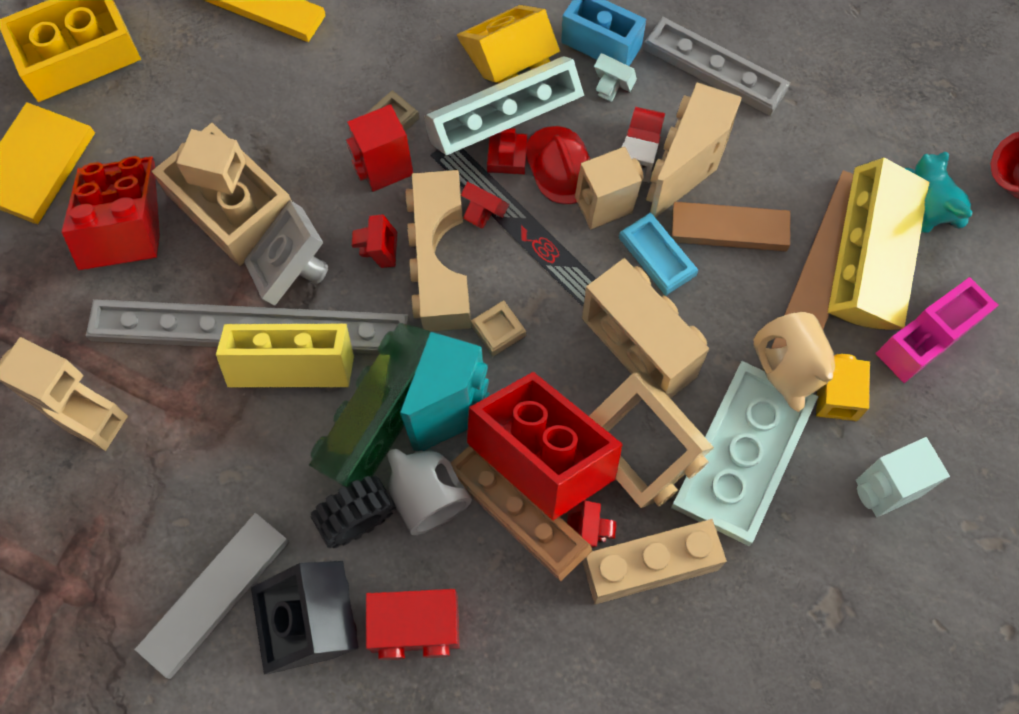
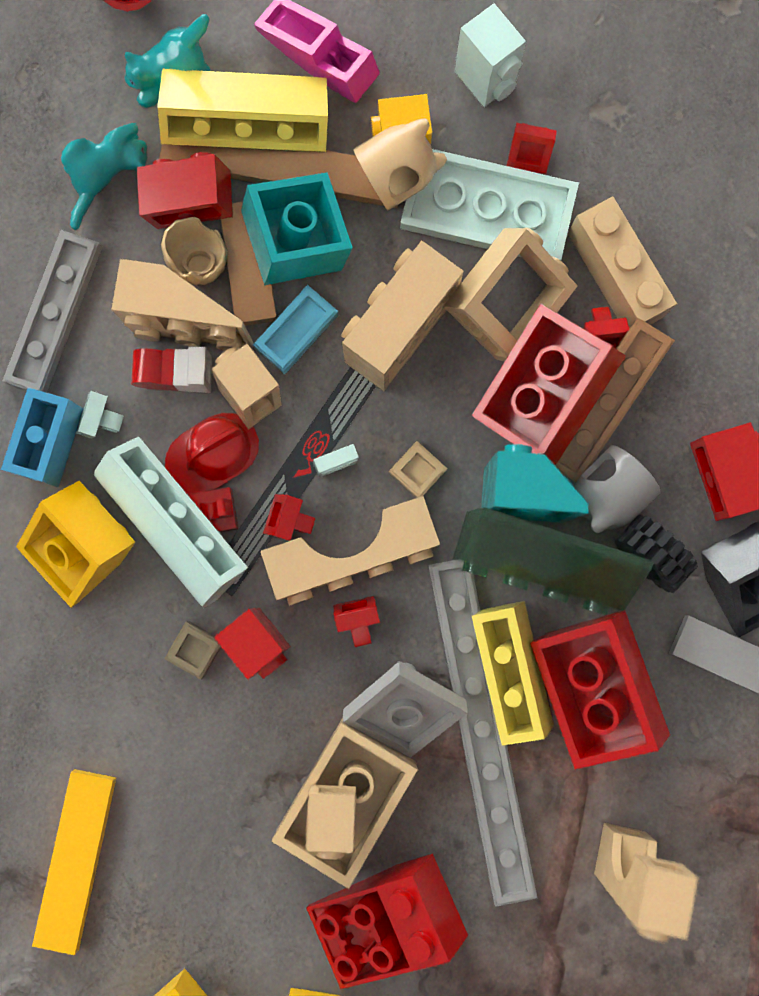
camera: 105 degrees left, 15 degrees up
(242, 424) = (600, 690): none -> red brick
(524, 254) = (335, 460): none -> light aqua tile
(747, 176) = (194, 251): none -> tan hair
(751, 260) = (295, 228): none -> teal brick
(799, 506) = (531, 148): none -> red tile
(807, 181) = (184, 190): none -> brick
(844, 115) = (95, 165): none -> teal animal

